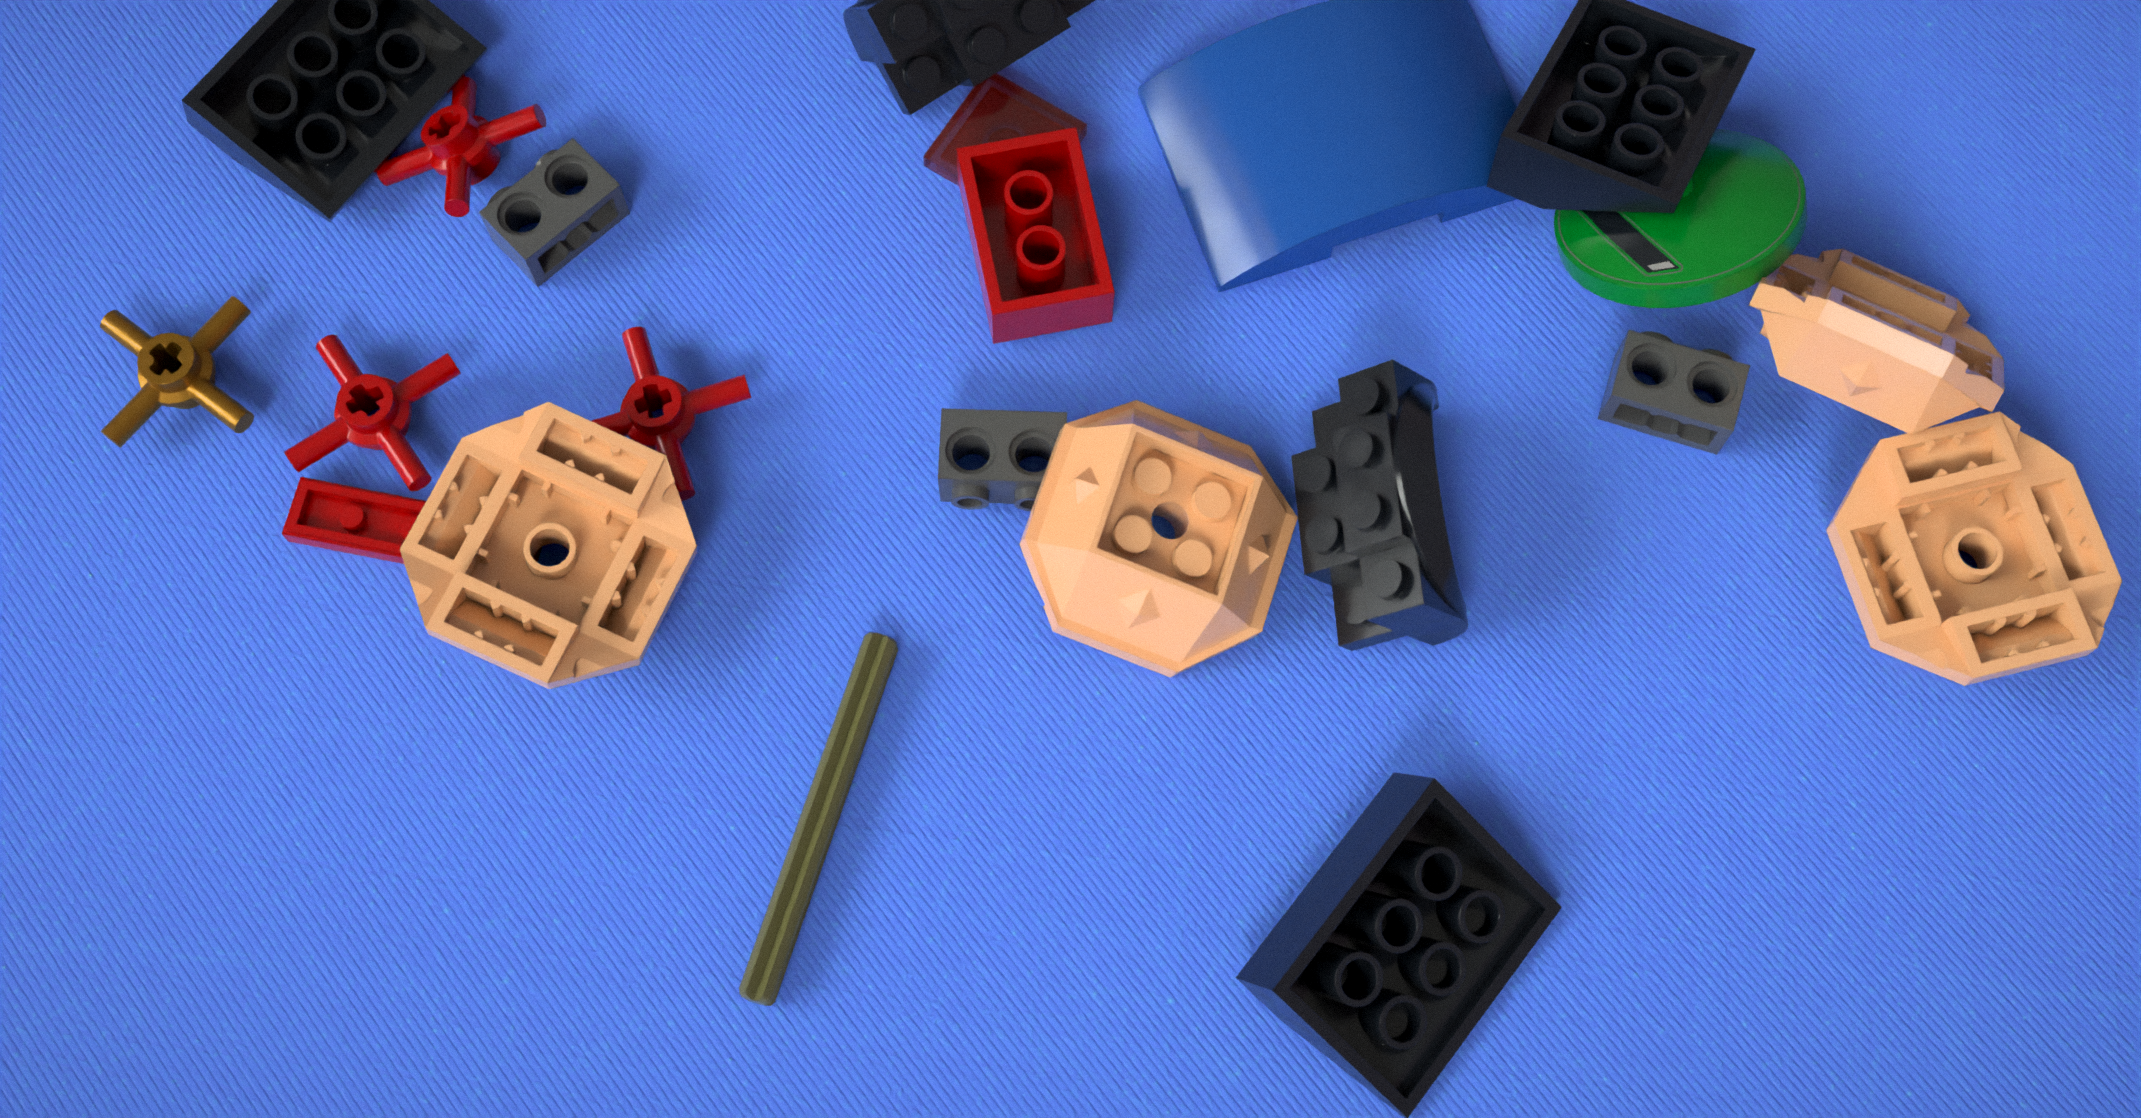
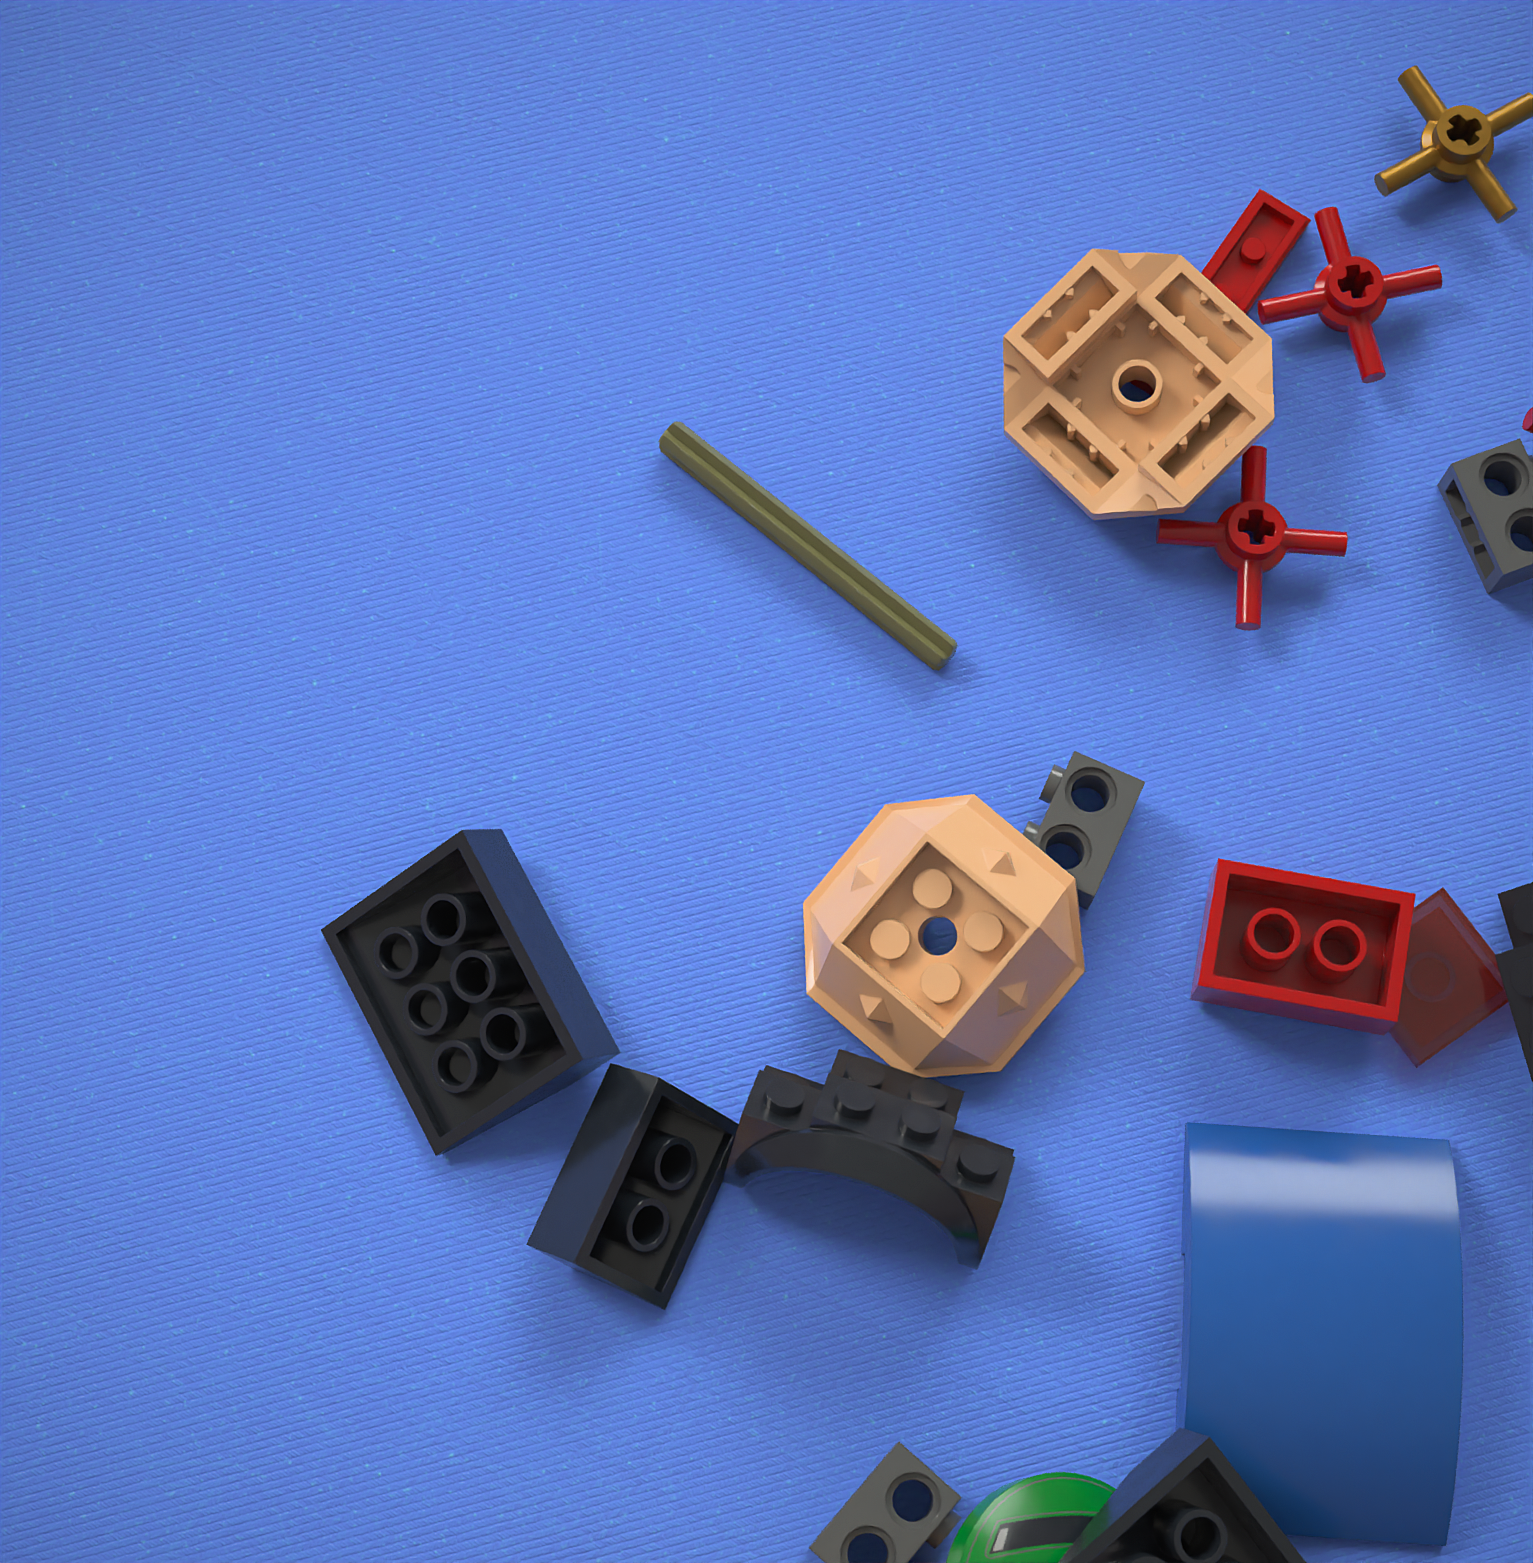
camera: 115 degrees right, 5 degrees up
(1505, 711) = (636, 1185): none -> black slope

